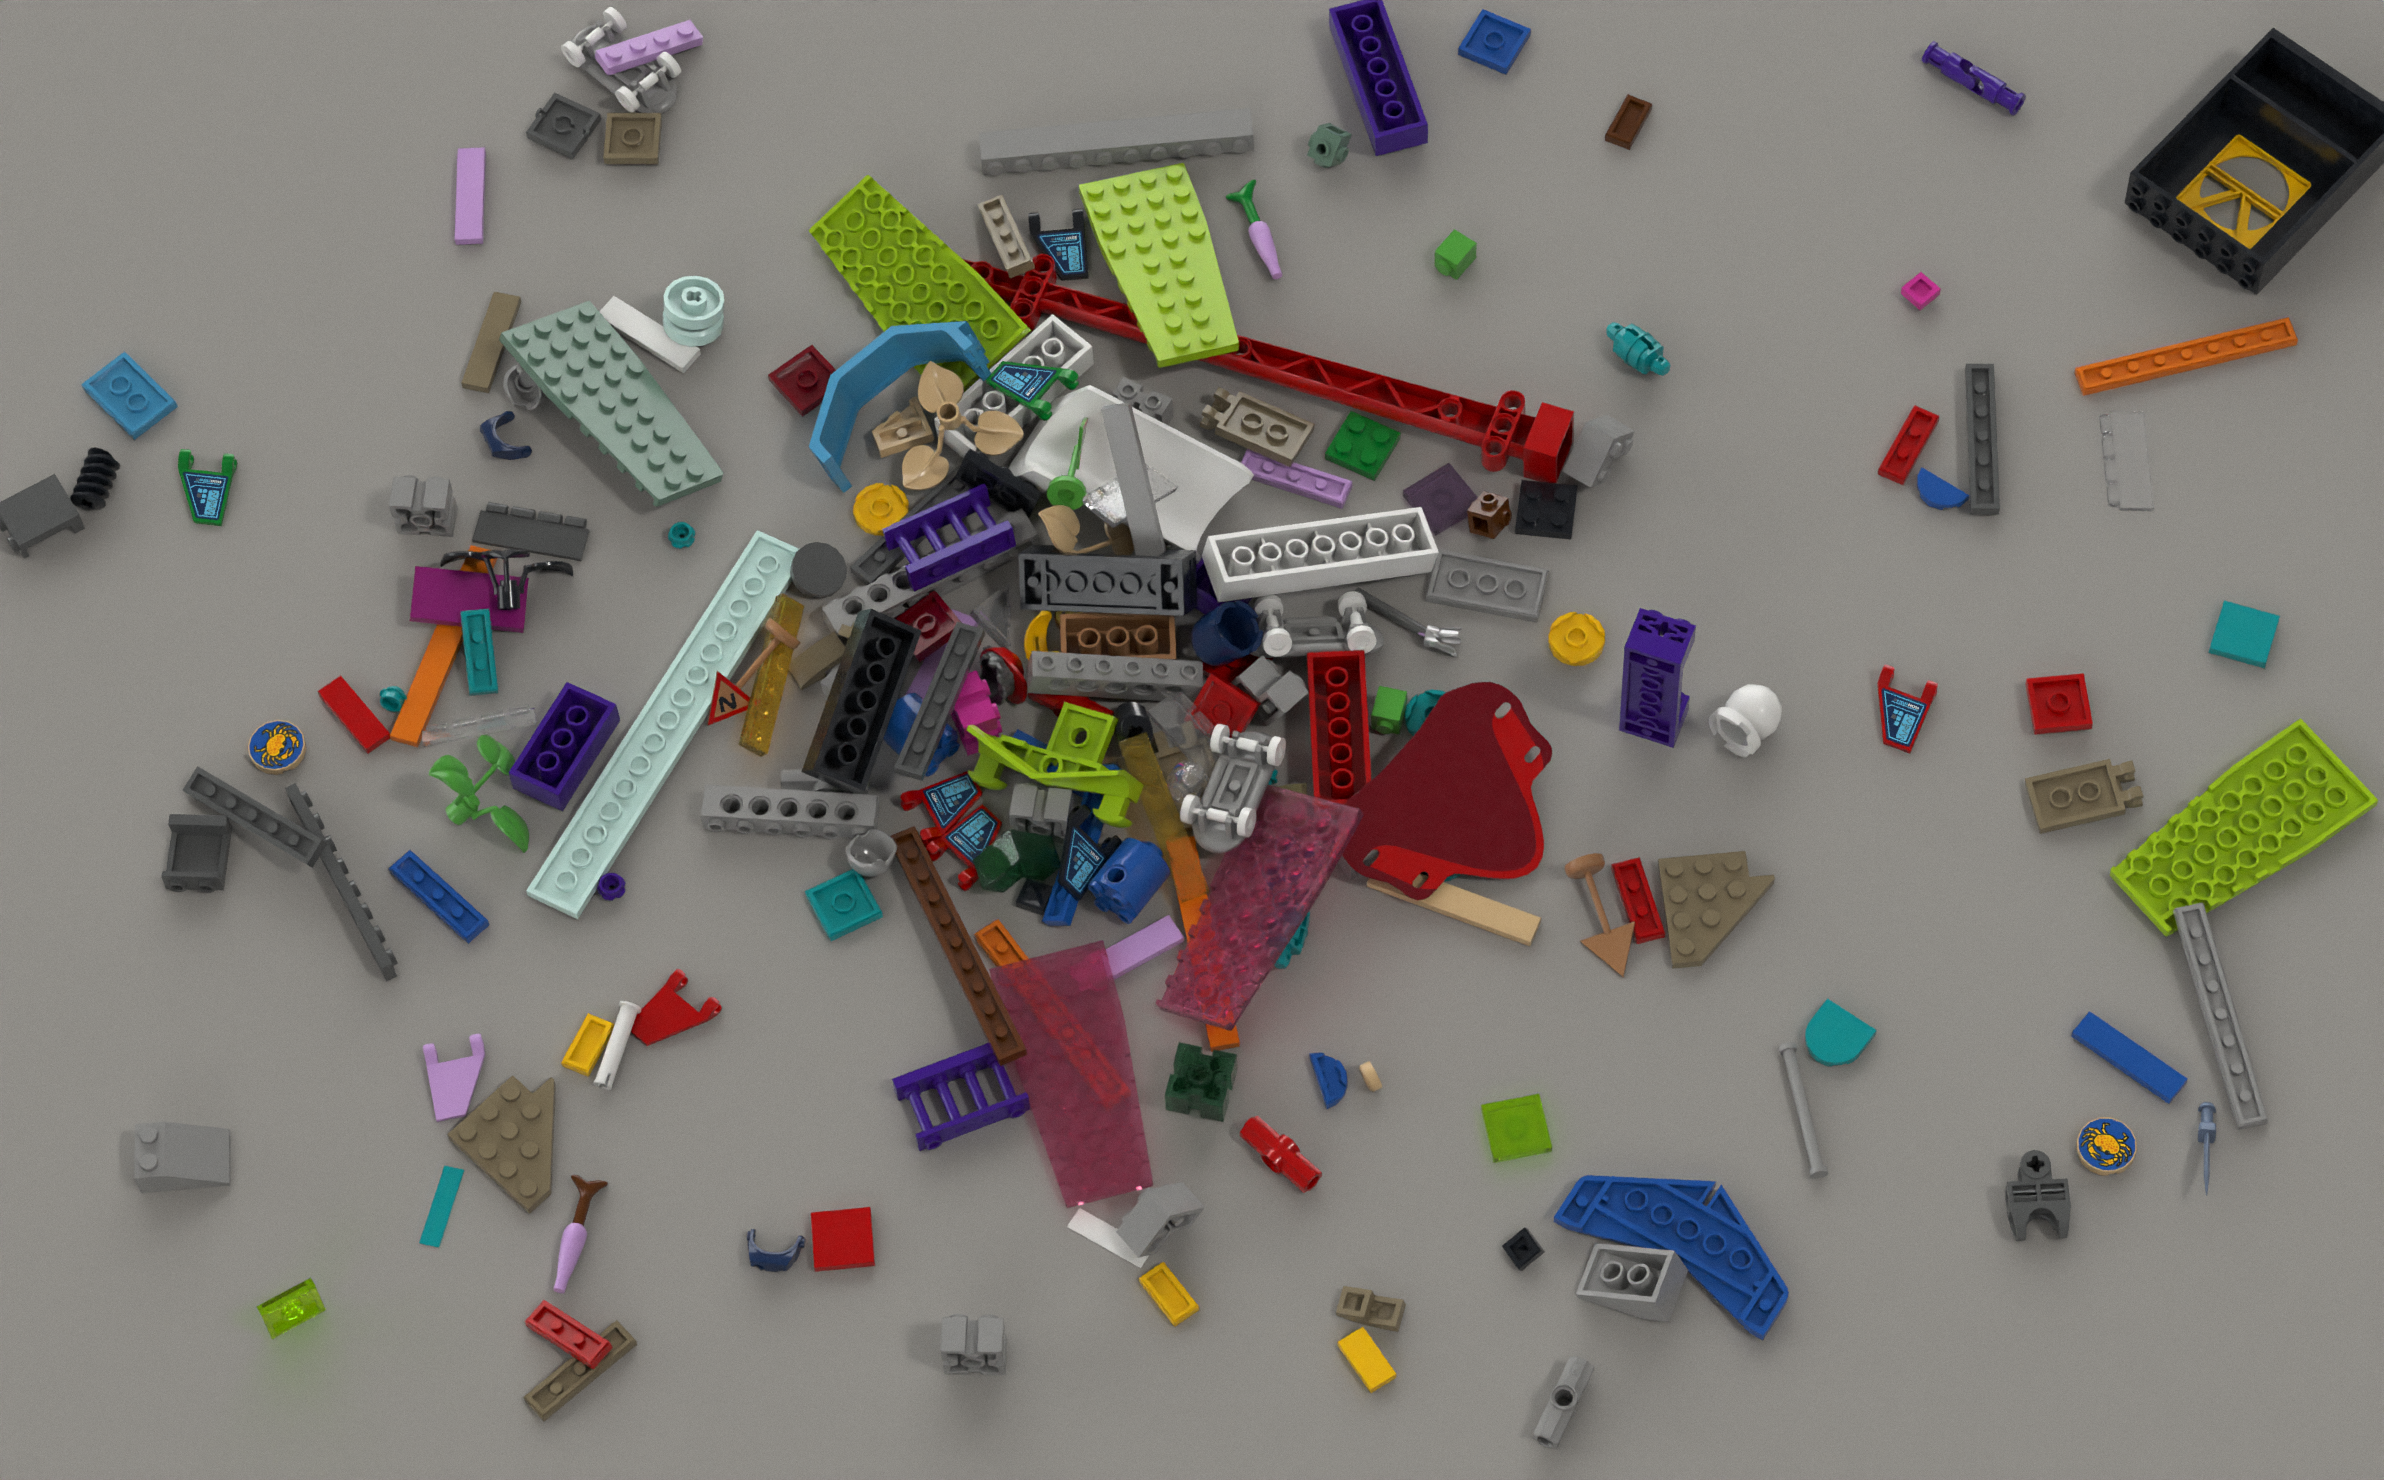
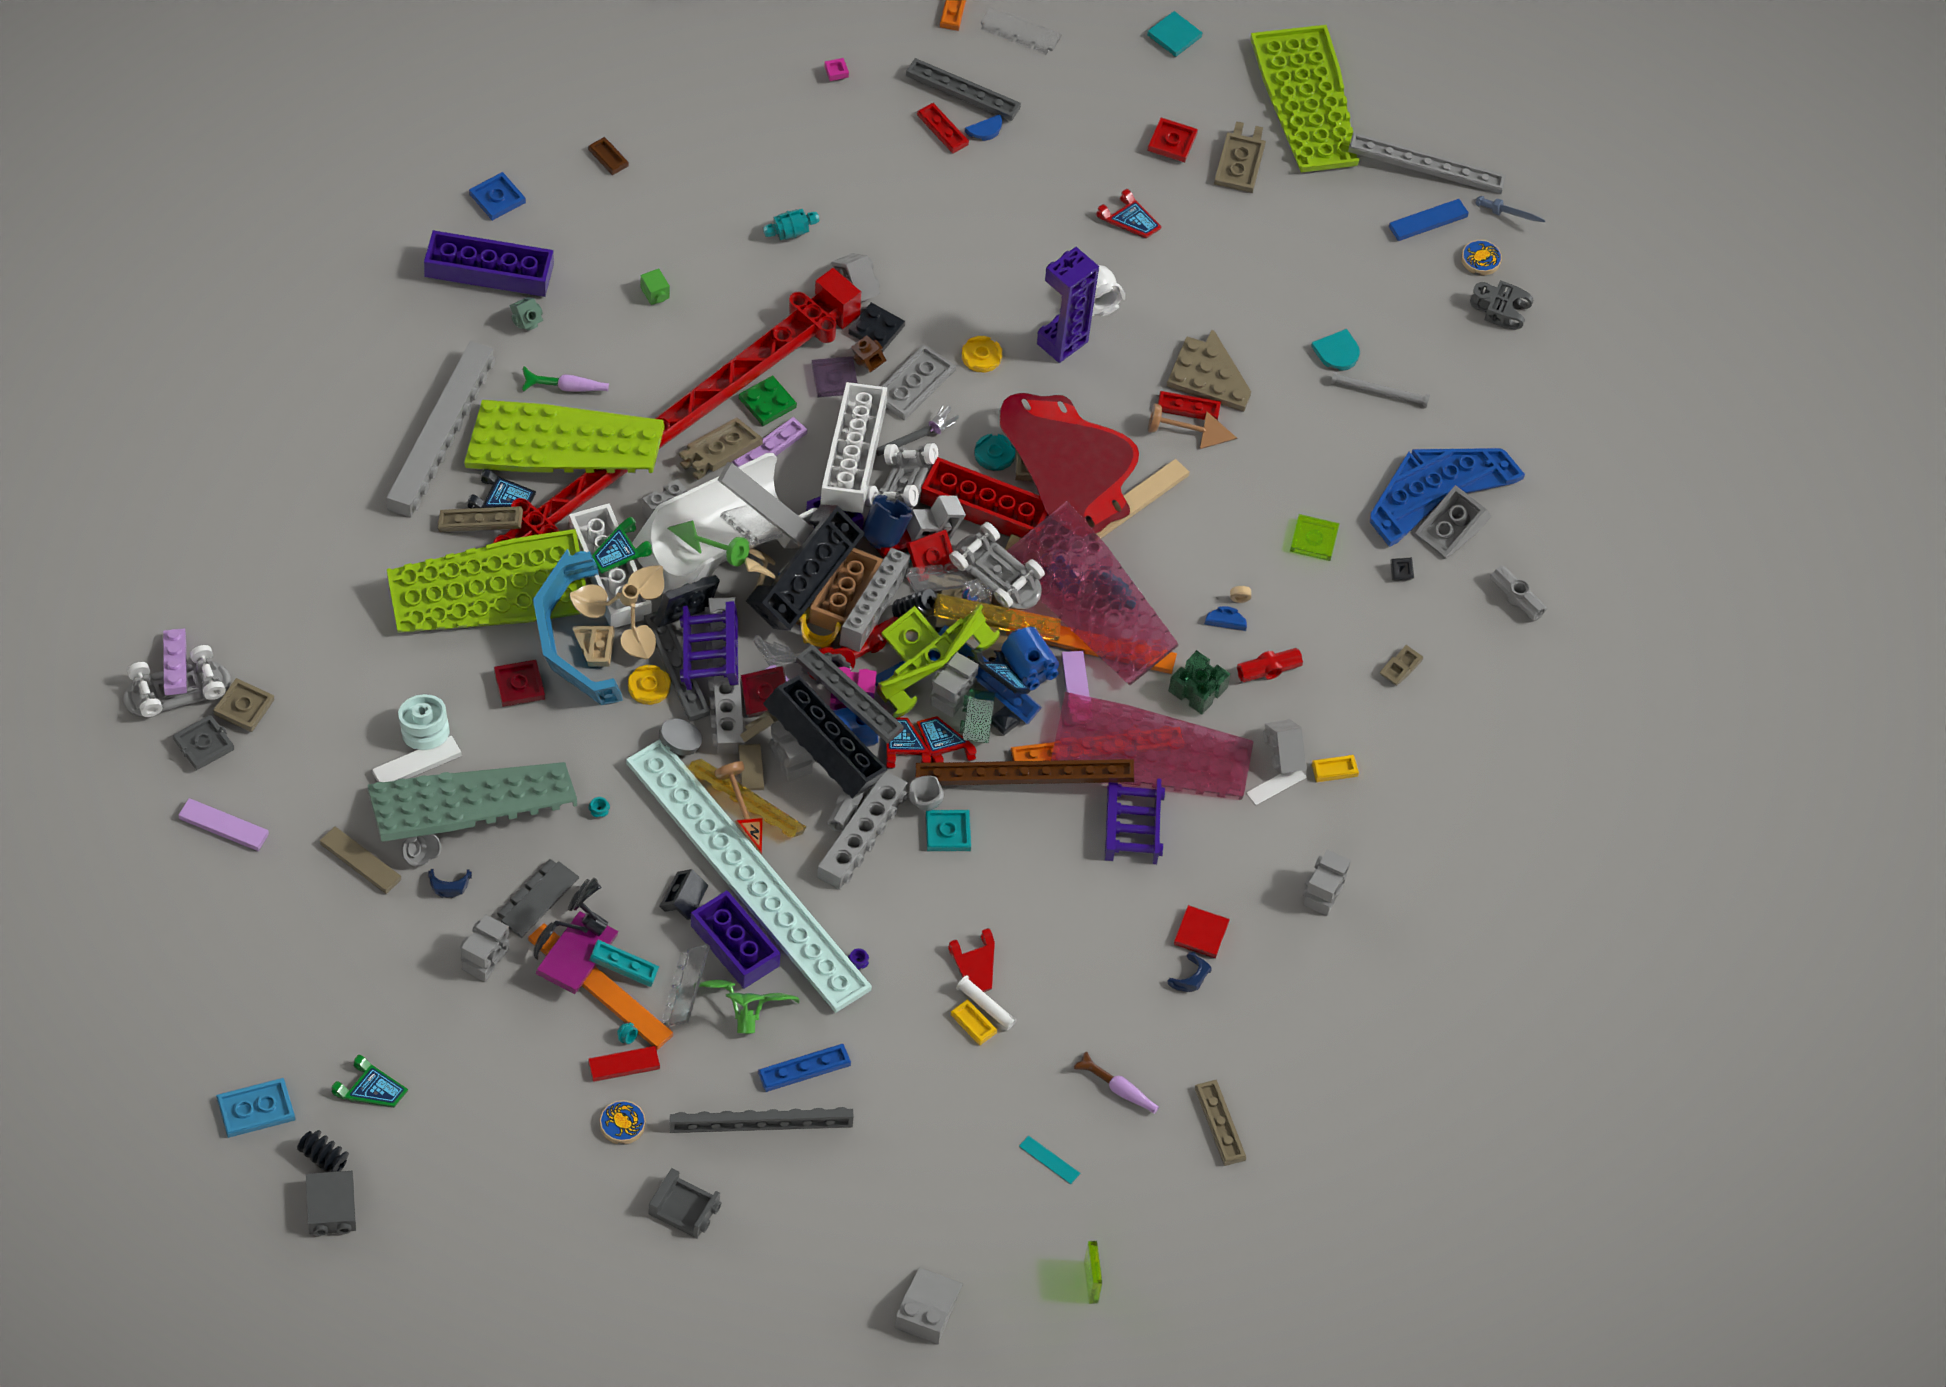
camera: 75 degrees left, 5 degrees down
(255, 816) = (681, 1151): dark grey plate -> none
(454, 1080) = (956, 1112): lavender flag -> none
(513, 1140) = (1024, 1096): dark tan wing -> none
(568, 1334) = (1193, 1116): red tile -> none
(608, 672) = (684, 893): none -> black panel
(1366, 1359) = (1435, 683): yellow tile -> none
(1388, 710) = (982, 465): bright green brick -> none

